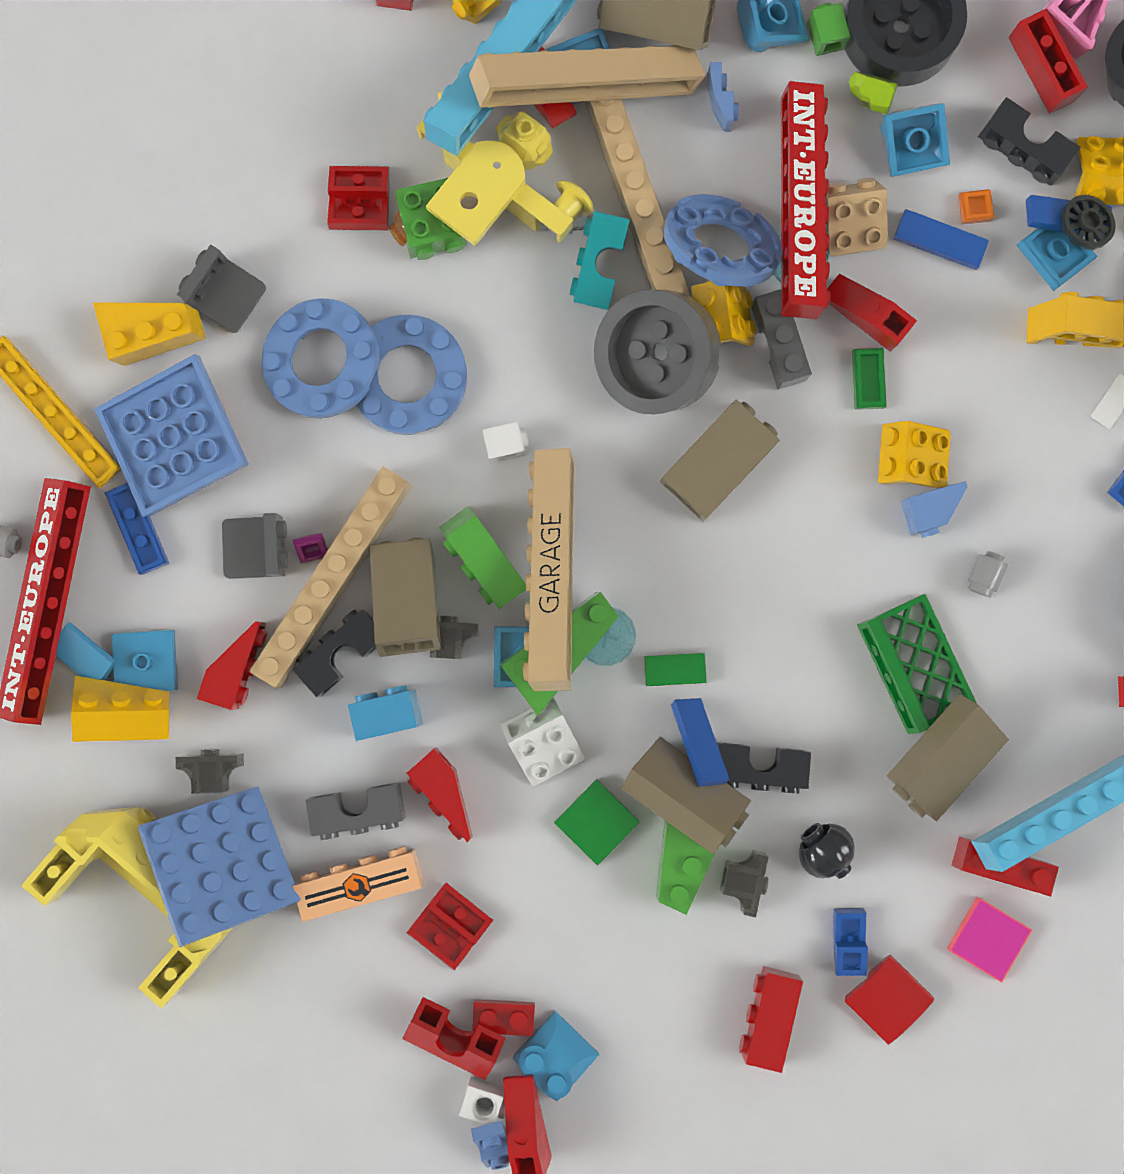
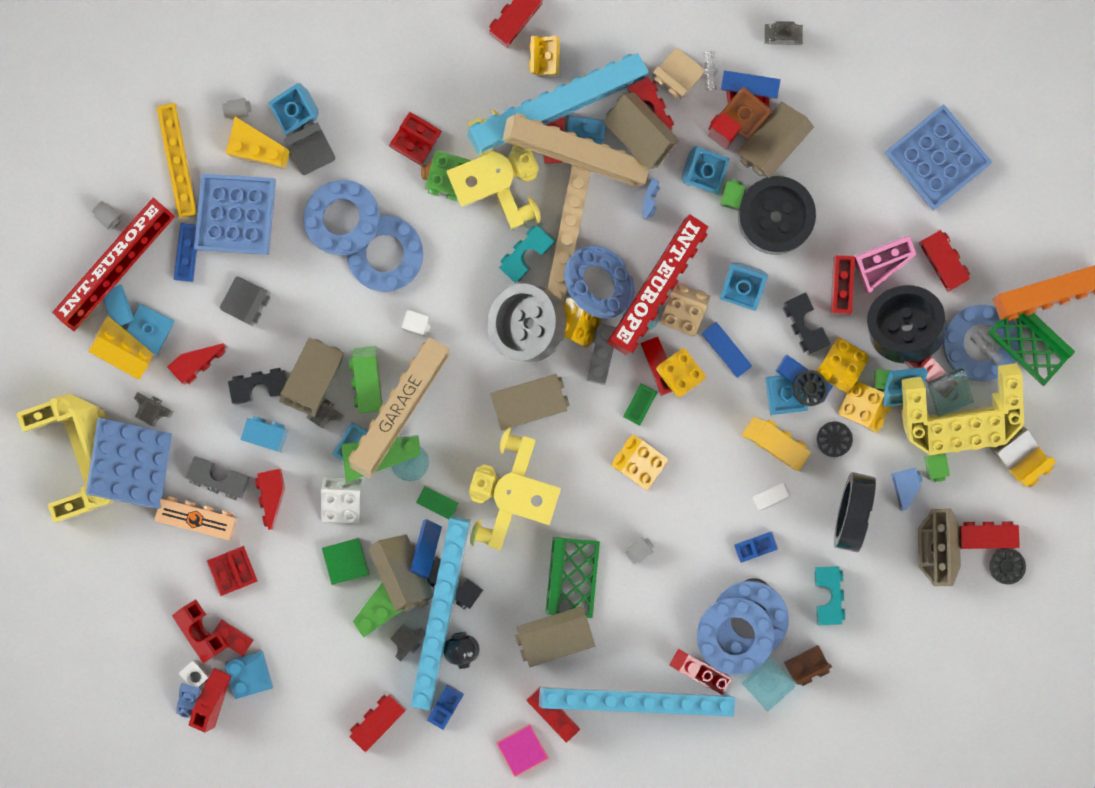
camera: 30 degrees right, 0 degrees up
(89, 291) = (236, 108): none -> light grey brick
(168, 248) = (294, 108): none -> dark azure slope
(310, 547) = (276, 319): magenta slope -> none
(331, 578) = (277, 343): tan brick -> none
(774, 595) = (511, 492): none -> light yellow piece
(774, 817) = (440, 612): none -> medium azure brick
(873, 91) = (737, 245): lime rock -> none
(889, 999) = (448, 750): red slope -> none
(906, 298) = (681, 372): none -> yellow bracket
(932, 509) = (630, 496): medium blue slope -> none
(976, 206) = (757, 342): orange tile -> none

